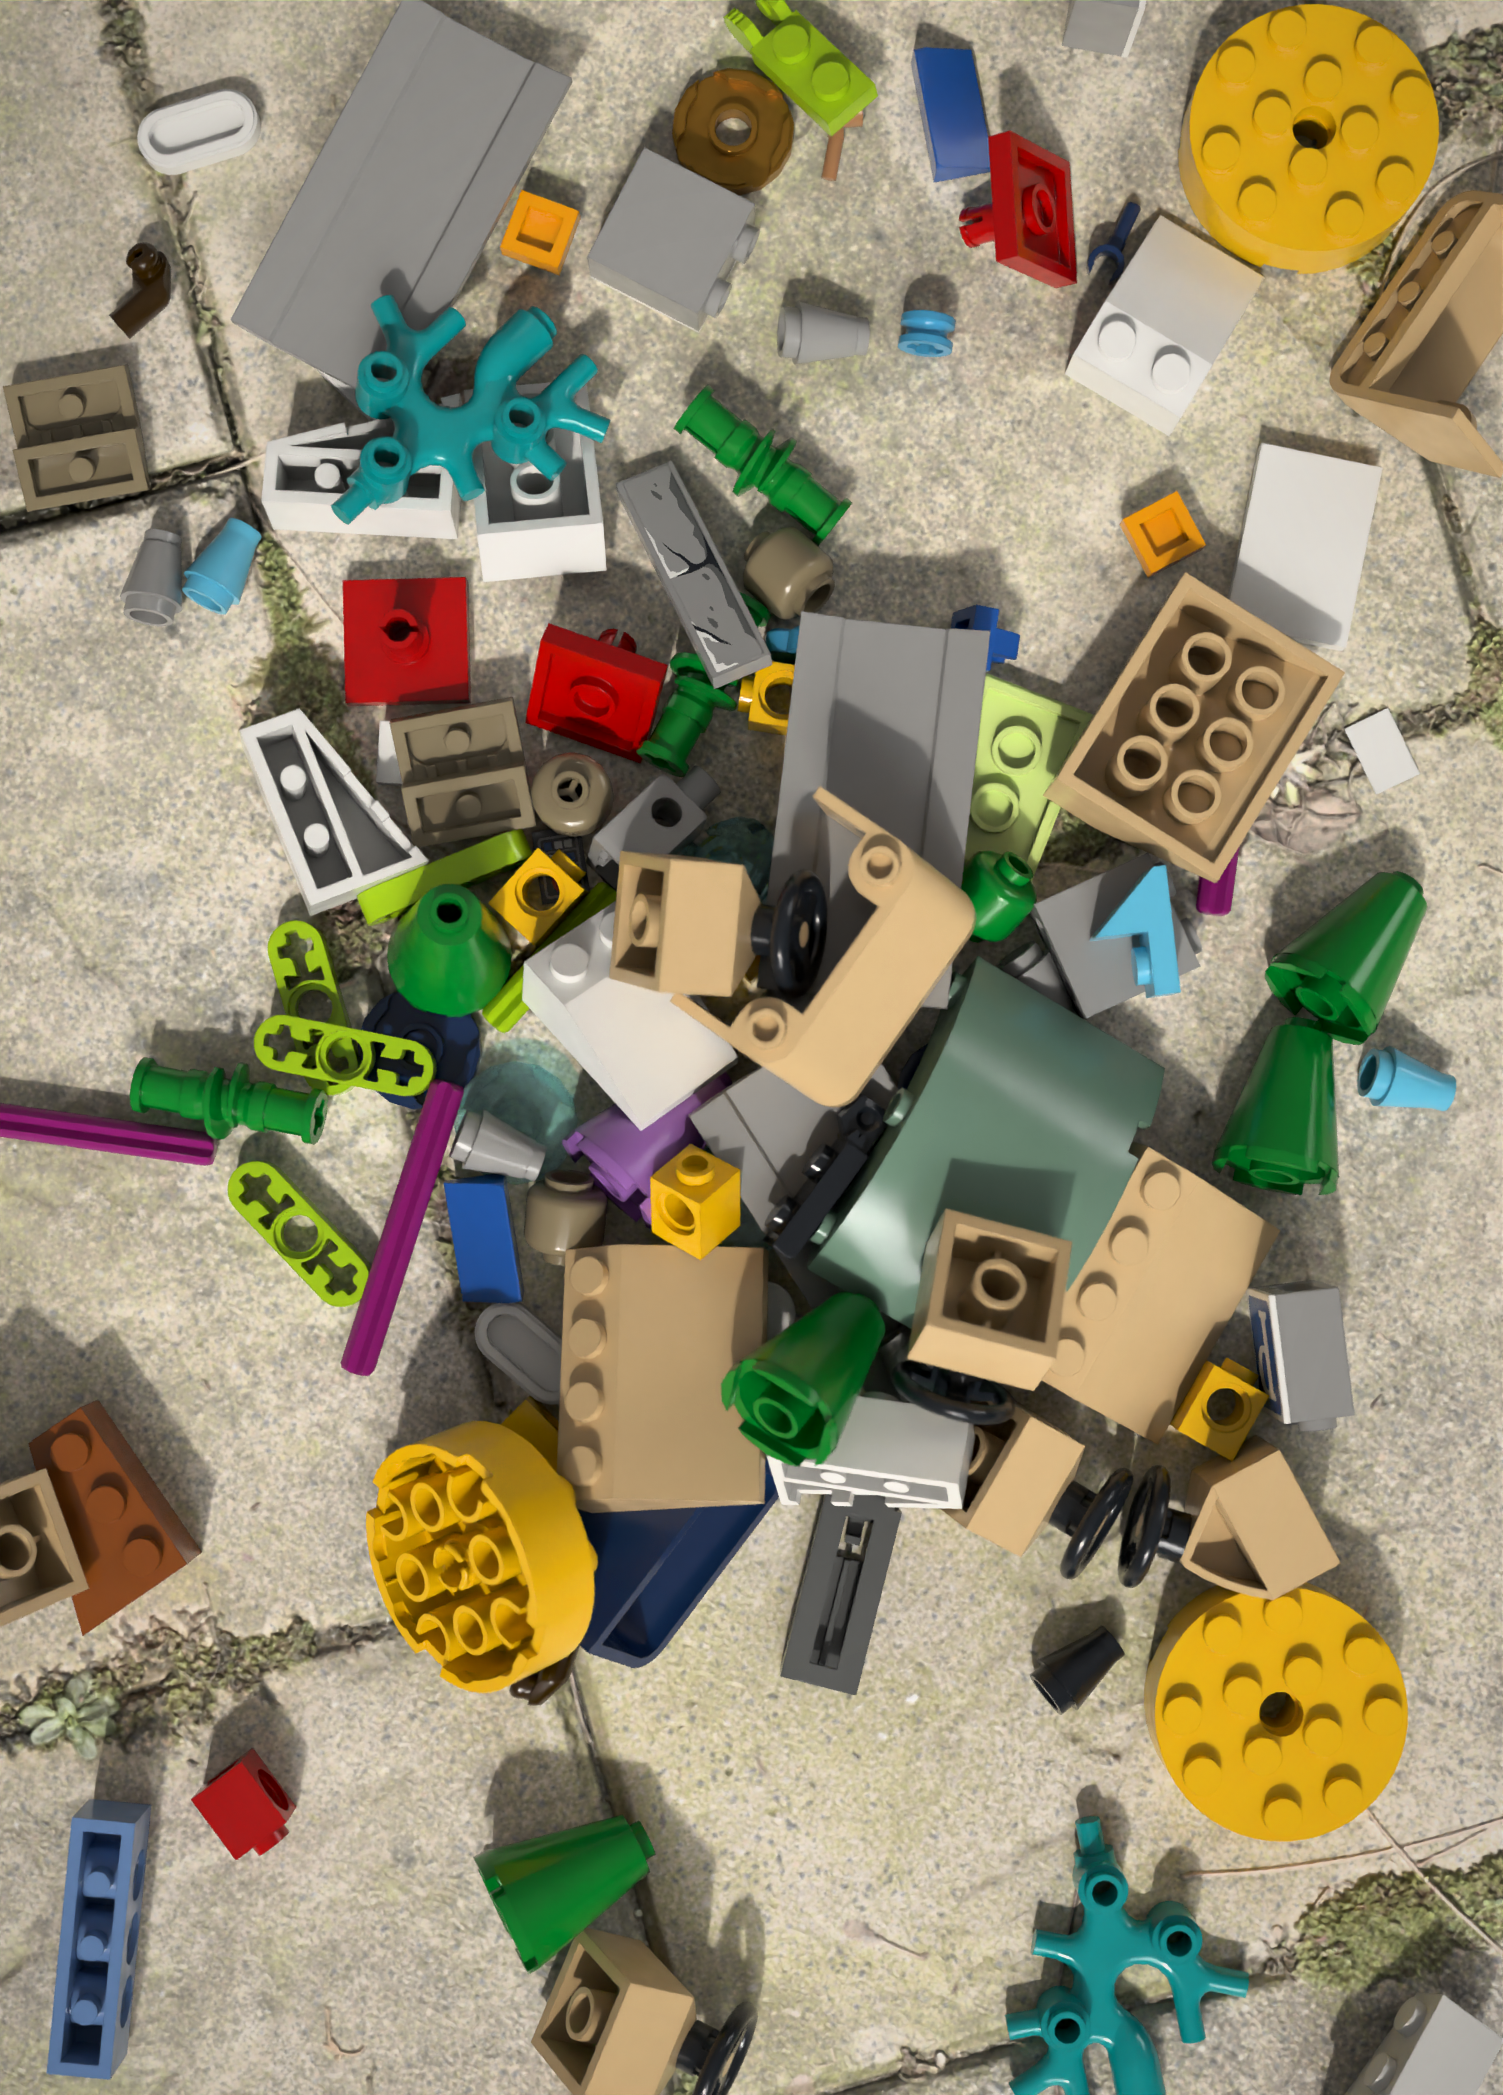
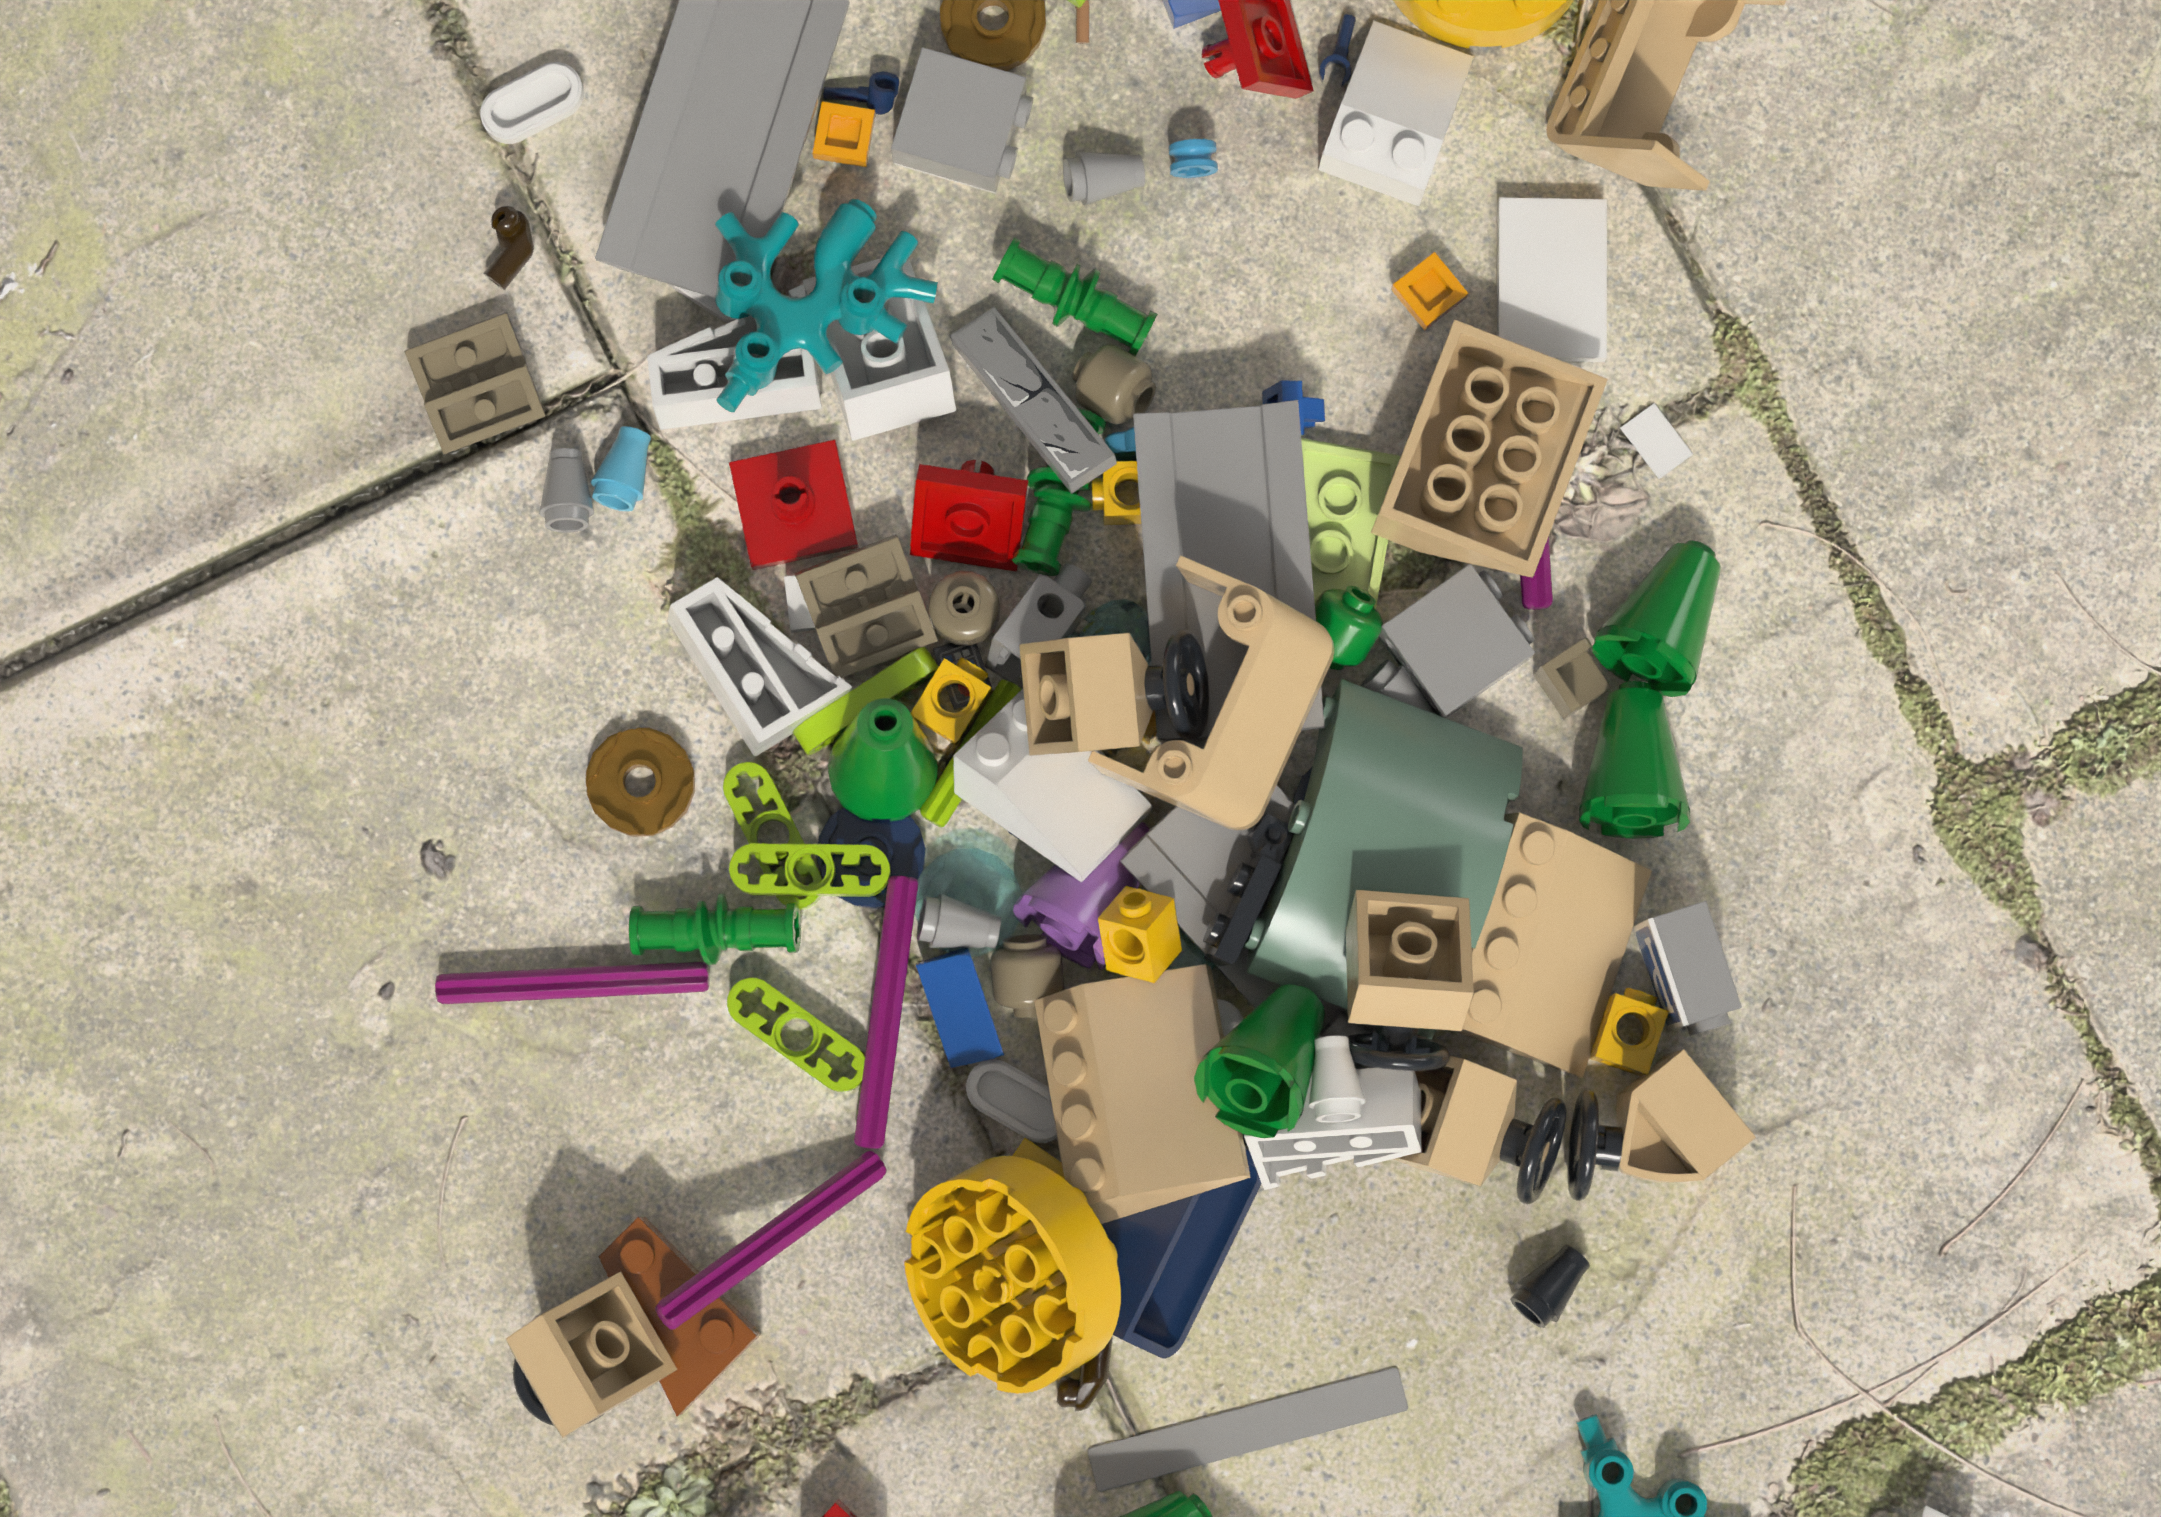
camera: 10 degrees left, 5 degrees down
(143, 913) = (659, 808): none -> pearl gold tile
(221, 1460) = (770, 1240): none -> magenta axle
(587, 195) = (878, 96): none -> dark blue hand
(714, 1758) = (1247, 1429): none -> light grey sticker
(840, 1595) = (1330, 1262): dark grey hinge -> none
(879, 1419) = (1335, 1083): none -> white cone
(1147, 914) = (1481, 617): medium azure slope -> none
(1235, 1002) = (1572, 679): none -> dark tan panel
(1325, 1748) = (1786, 1295): yellow brick -> none
(1401, 1081) = (1730, 720): medium azure cone -> none

